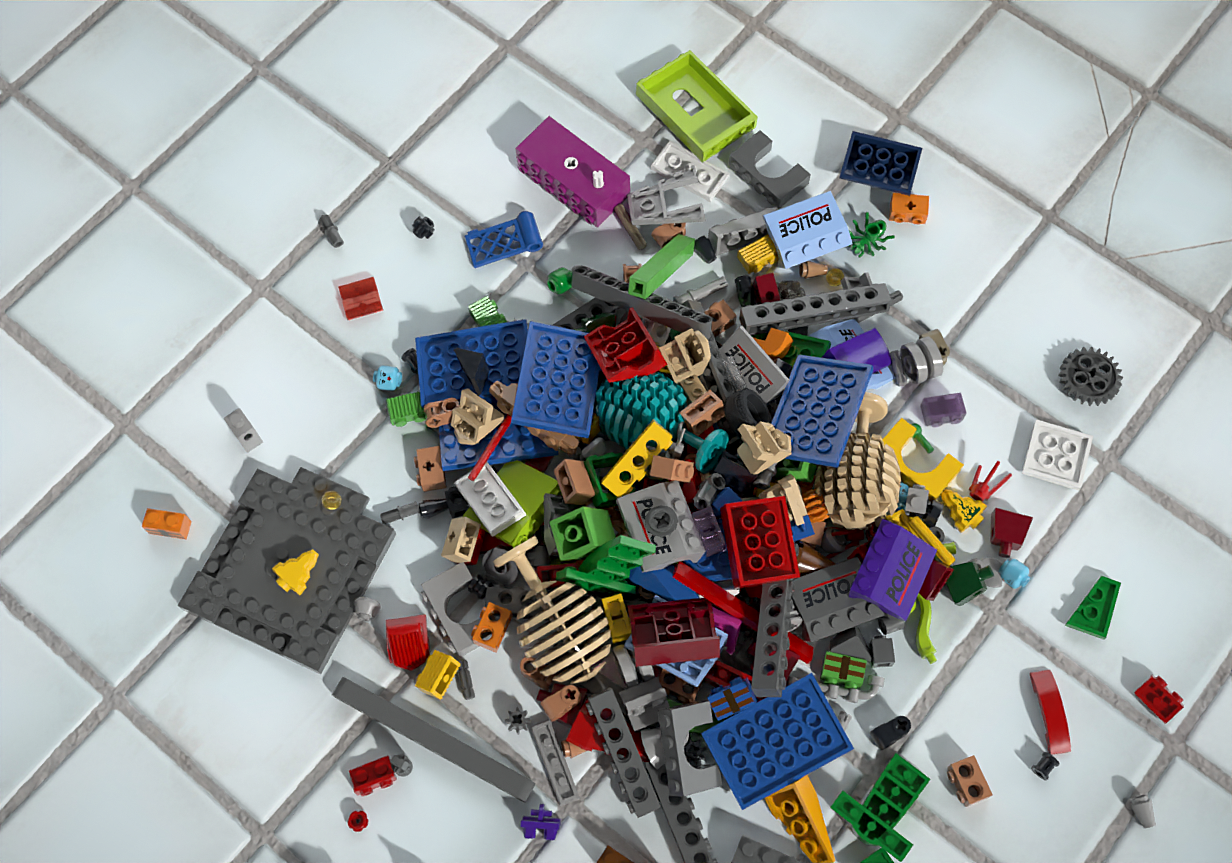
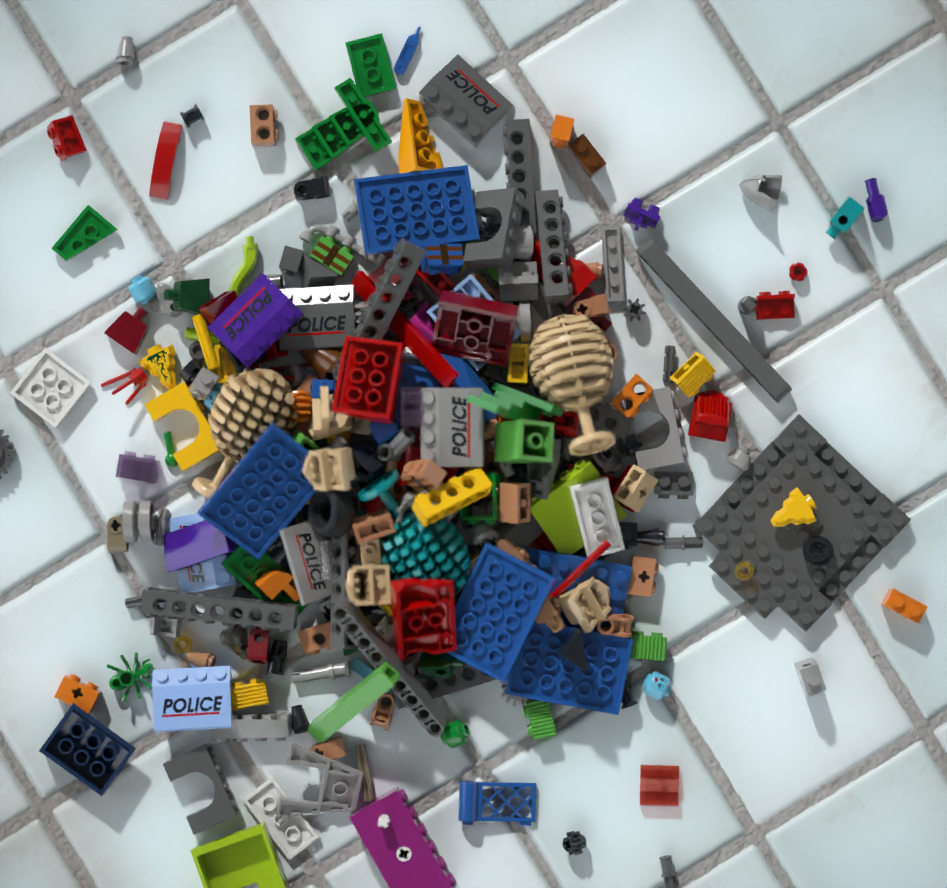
camera: 165 degrees left, 20 degrees up
(263, 532) = (819, 542): none -> black gear
(425, 563) = (673, 484): none -> dark grey bracket
(660, 512) = (461, 426): dark grey gear -> none

